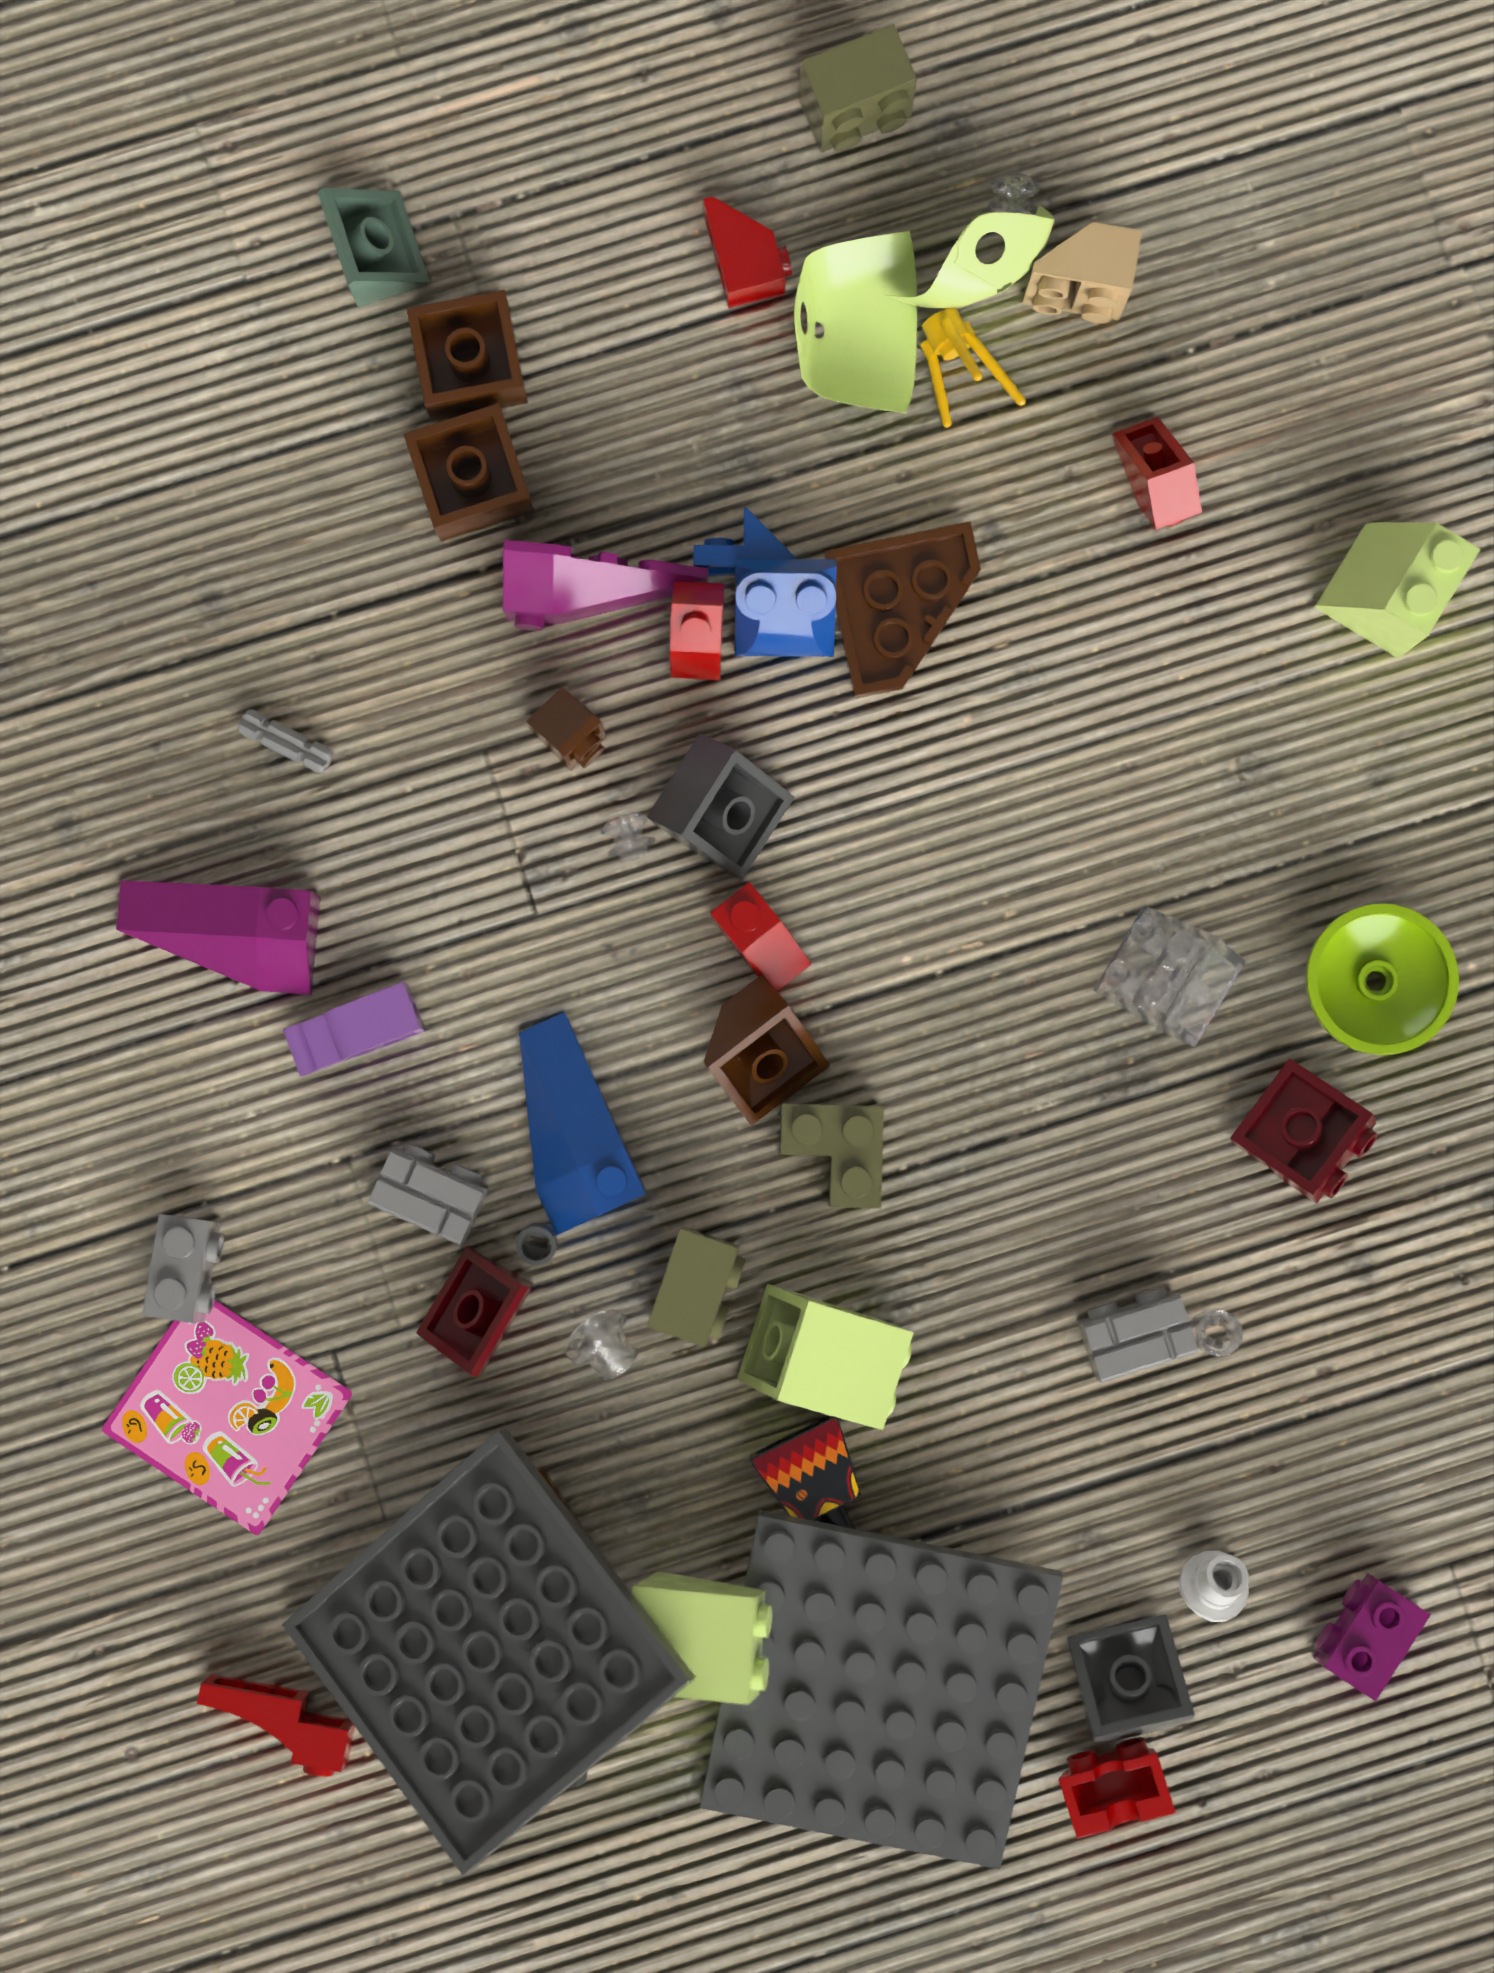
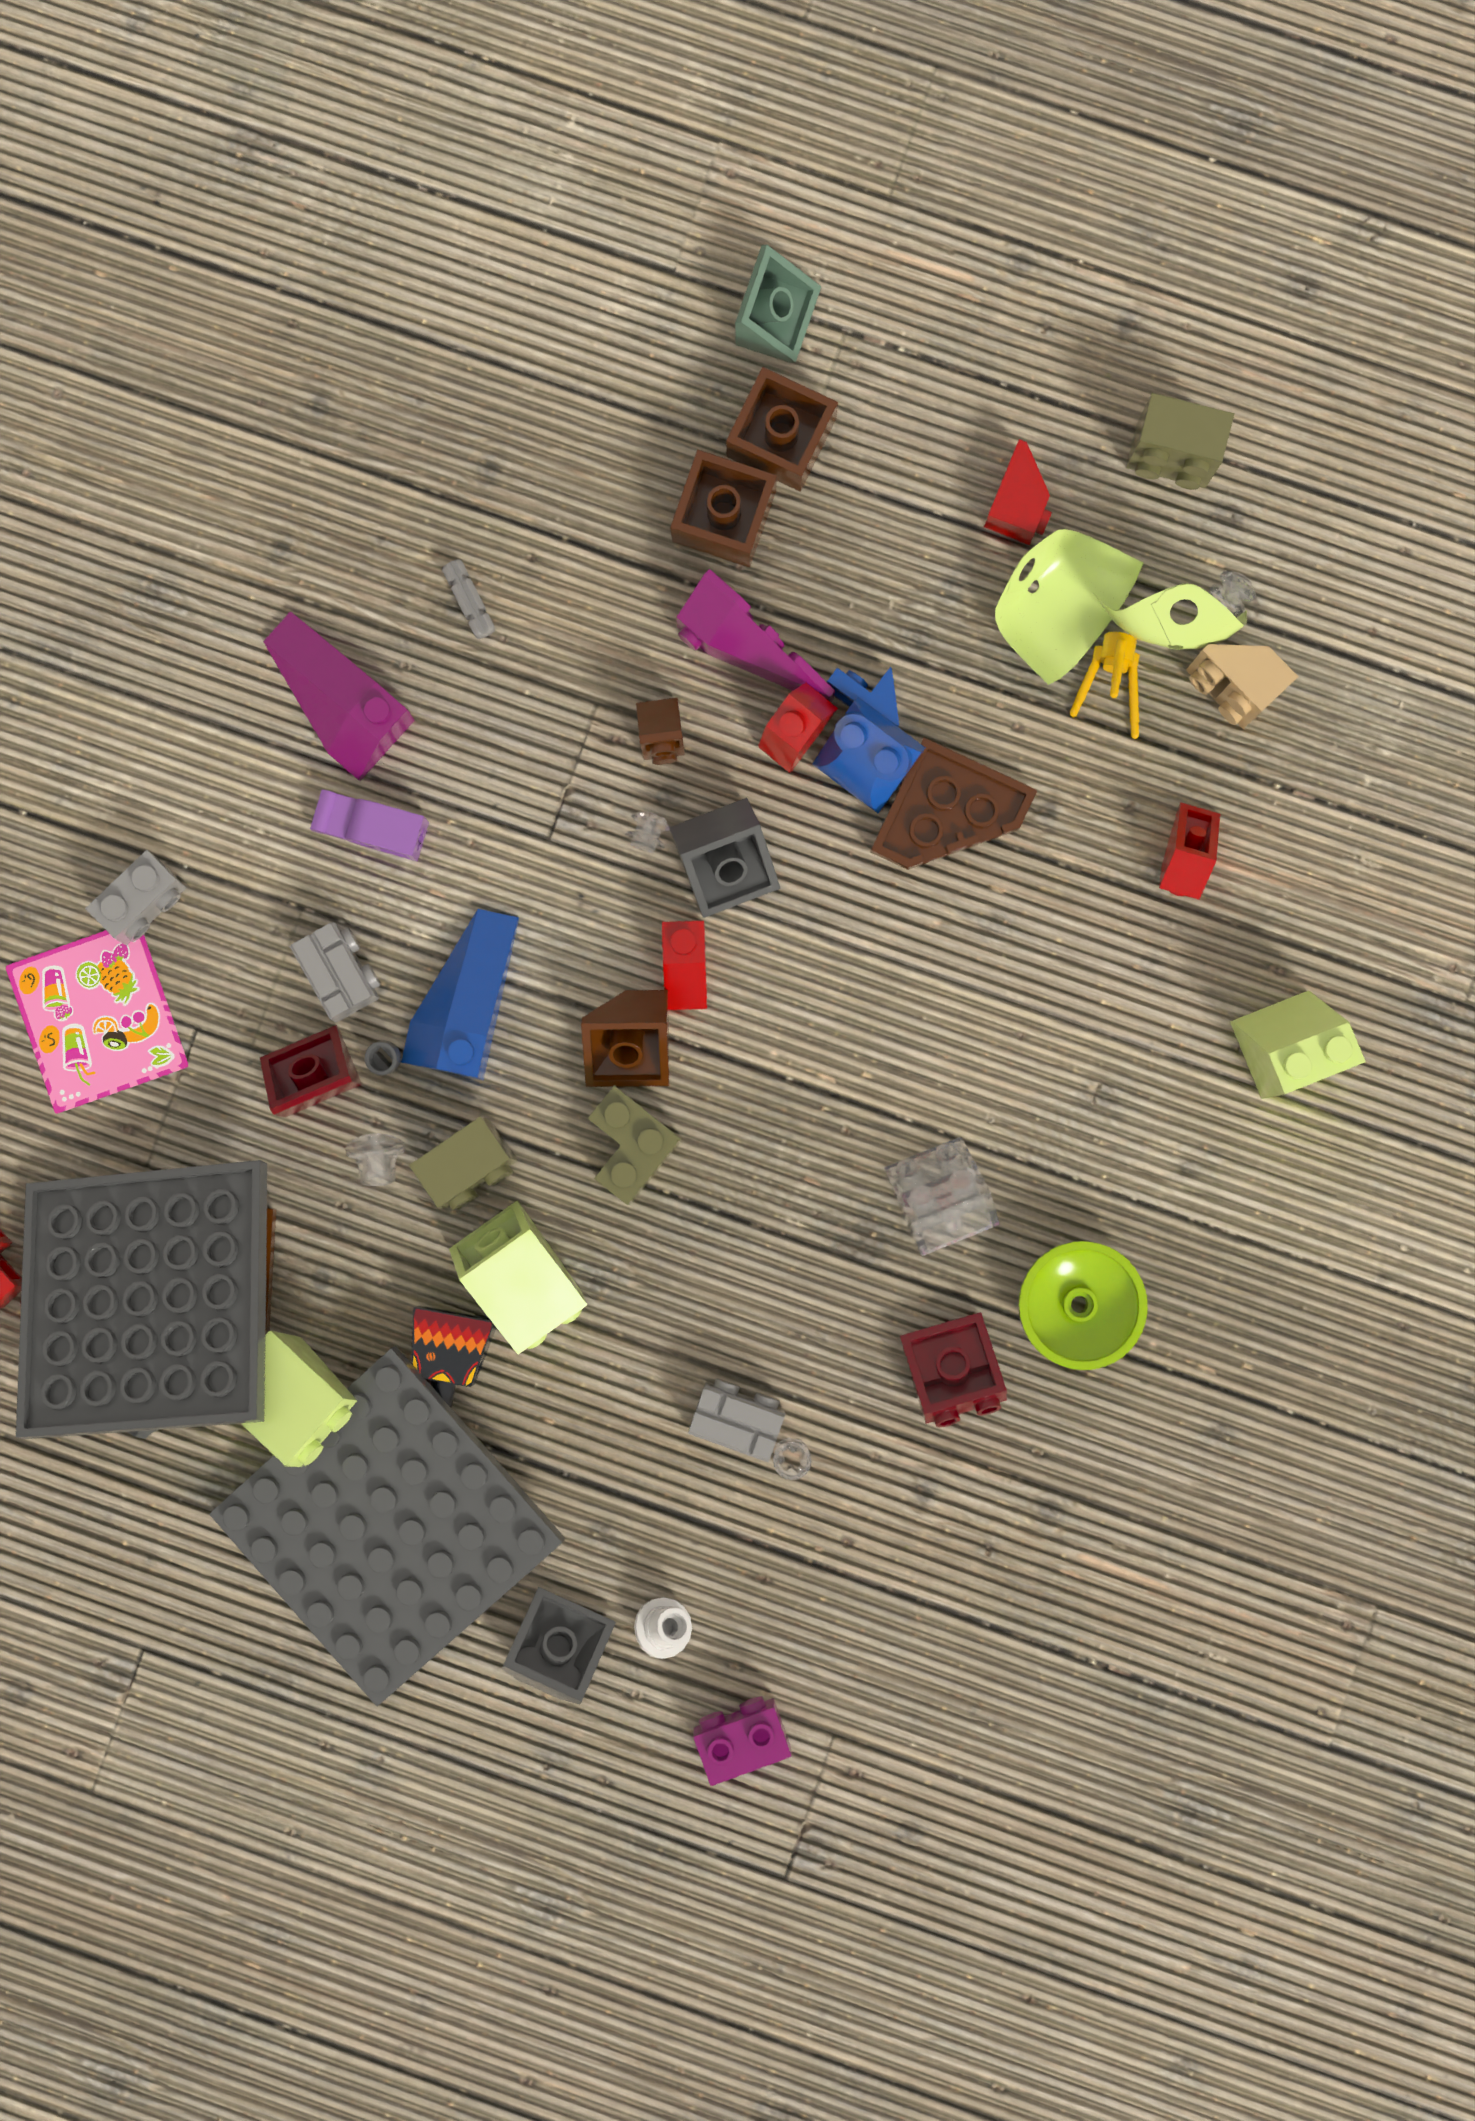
camera: 40 degrees right, 0 degrees up
(1115, 1787) = (492, 1710): red cylinder -> none

